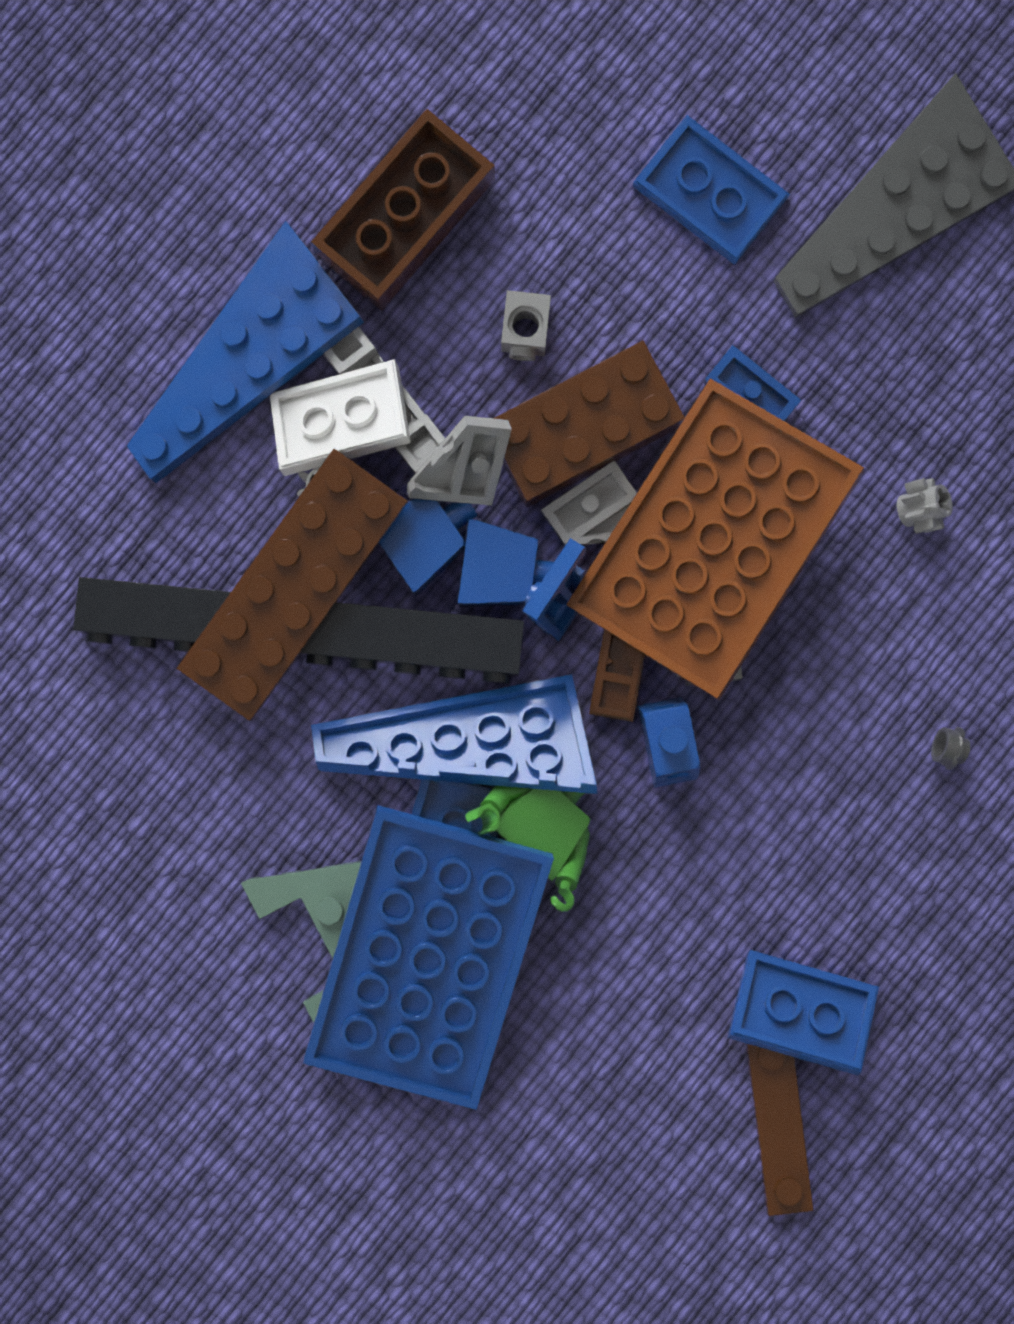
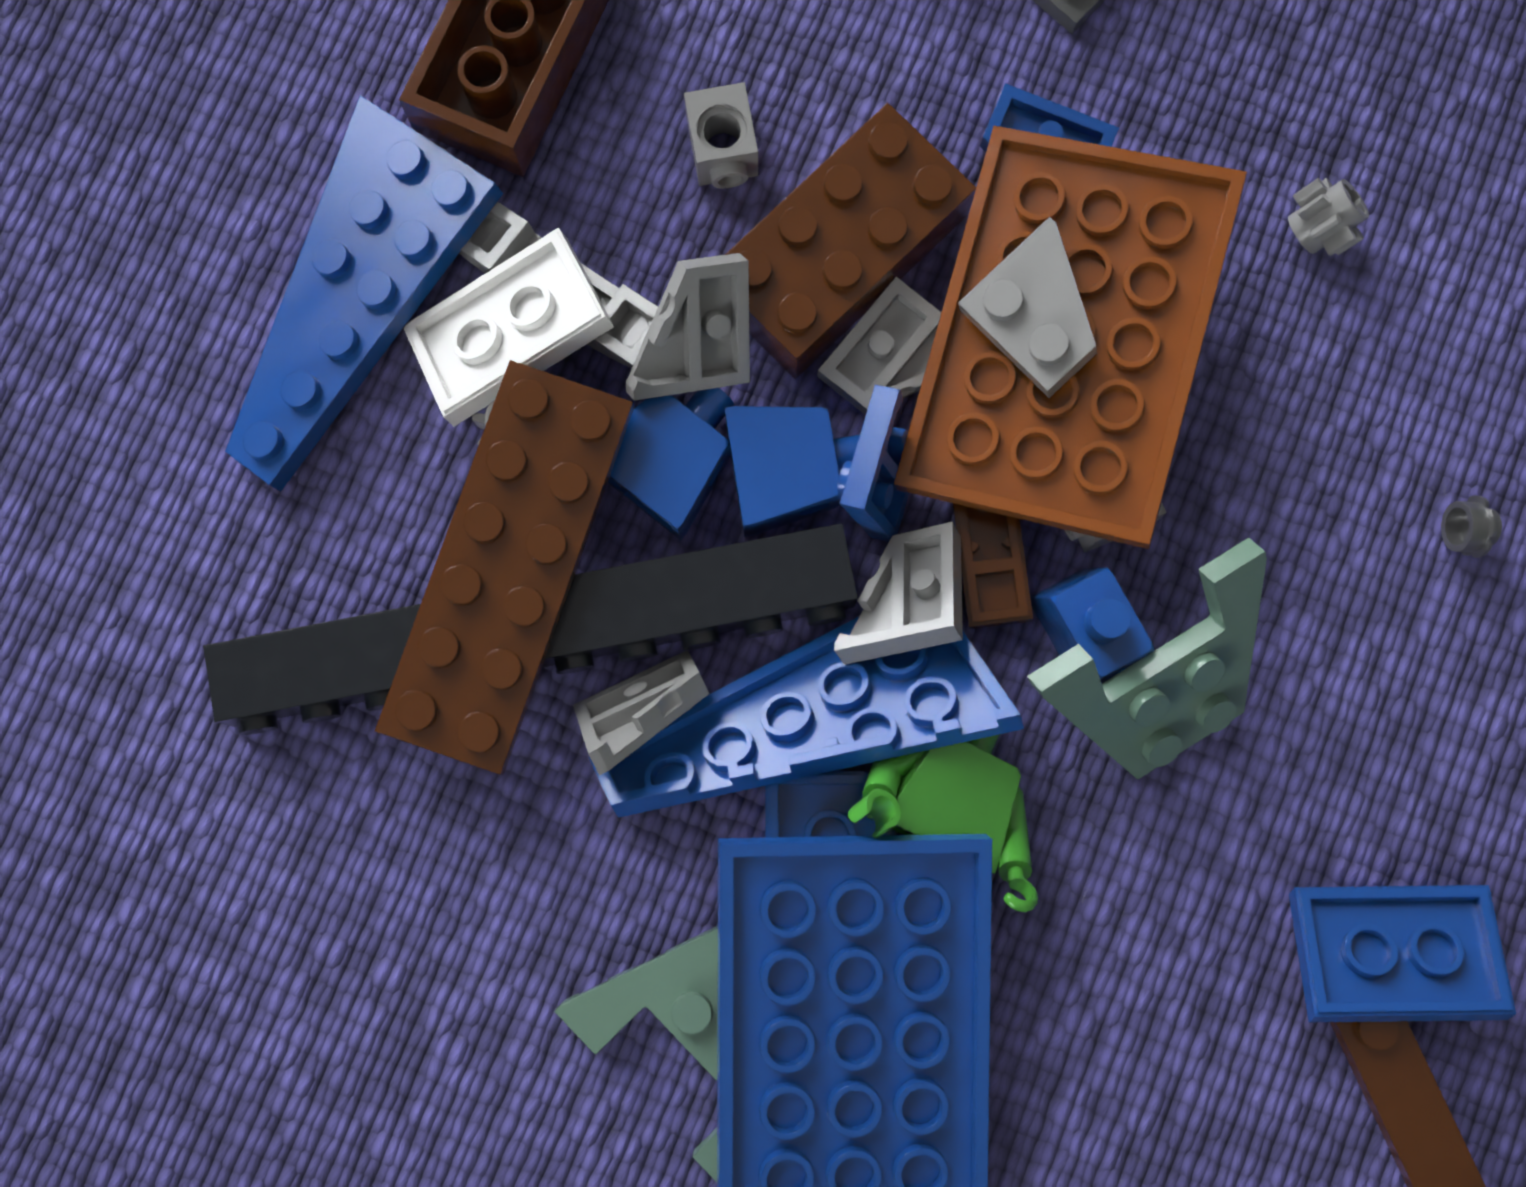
camera: 20 degrees left, 5 degrees down
(352, 703) = (637, 709): none -> light grey wing
(554, 684) = (911, 598): none -> light grey wing
(694, 518) = (1035, 311): none -> light grey wing
(706, 799) = (1180, 688): none -> sand green wing

